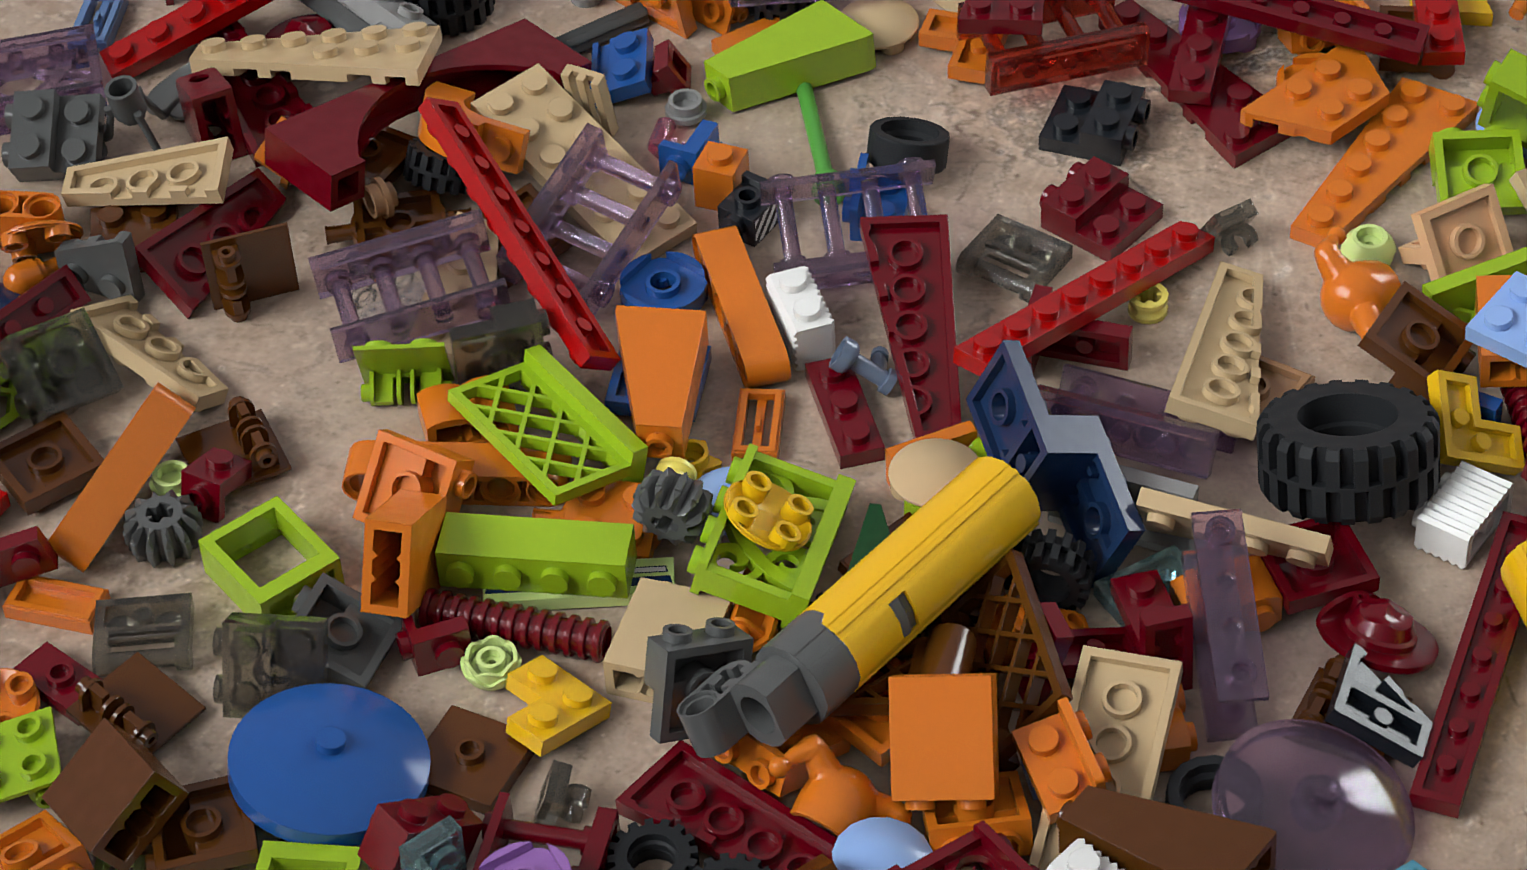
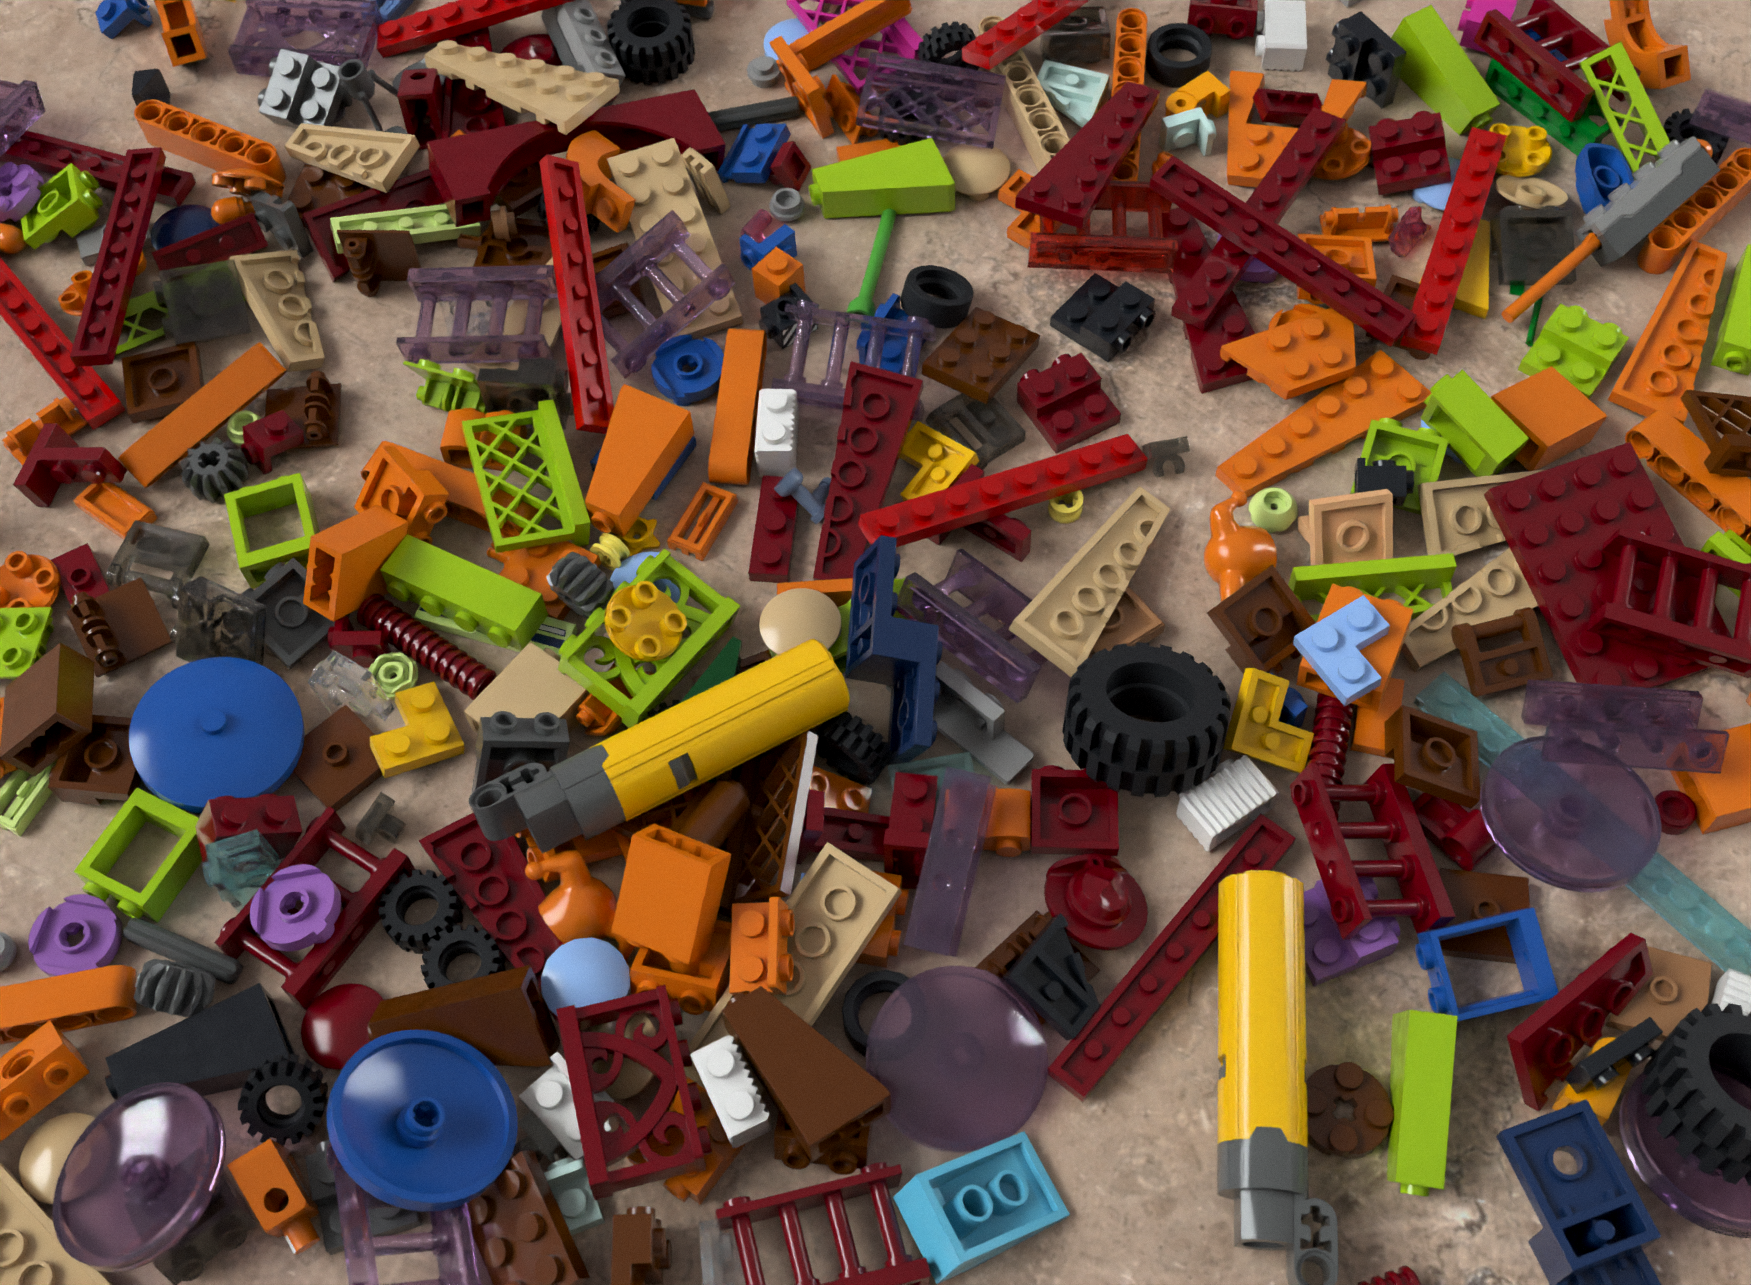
camera: 20 degrees right, 15 degrees up
(304, 218) = (424, 223): none -> yellowish green plate
(462, 673) = (344, 682): none -> clear bracket
(985, 187) = (980, 355): none -> reddish brown plate
(990, 294) = (937, 457): none -> yellow plate
(1299, 546) = (959, 731): tan wing -> none
(1470, 175) = (1384, 475): none -> black brick

